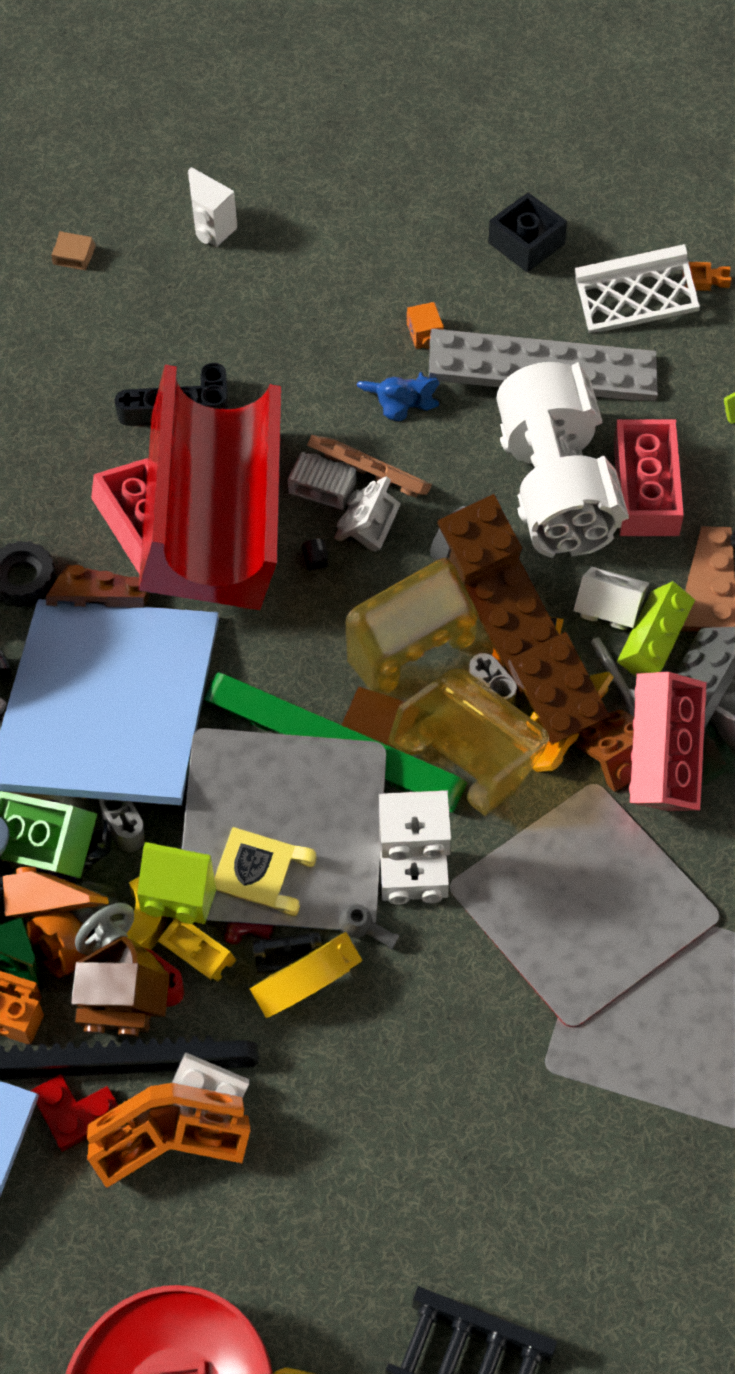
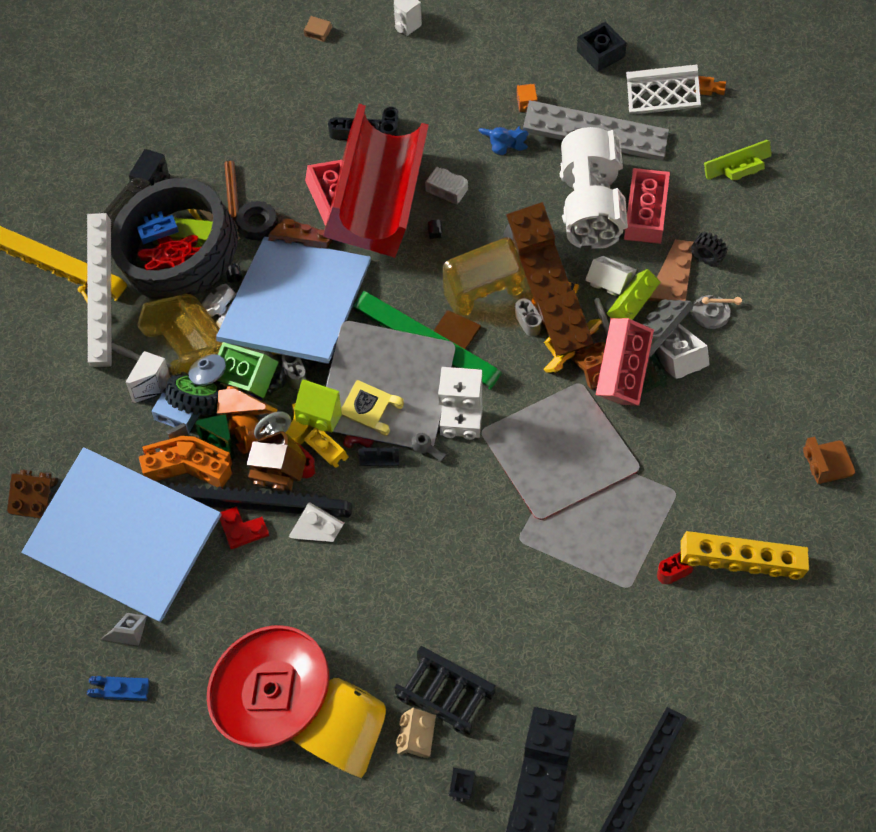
camera: 10 degrees right, 0 degrees up
(164, 1120) = (292, 540): orange brick -> none
(306, 975) = (386, 469): yellow arch -> none
(365, 463) = (475, 178): nougat wing -> none
(369, 515) = (472, 209): white bracket -> none
(475, 732) = (510, 342): clear yellow windscreen -> none

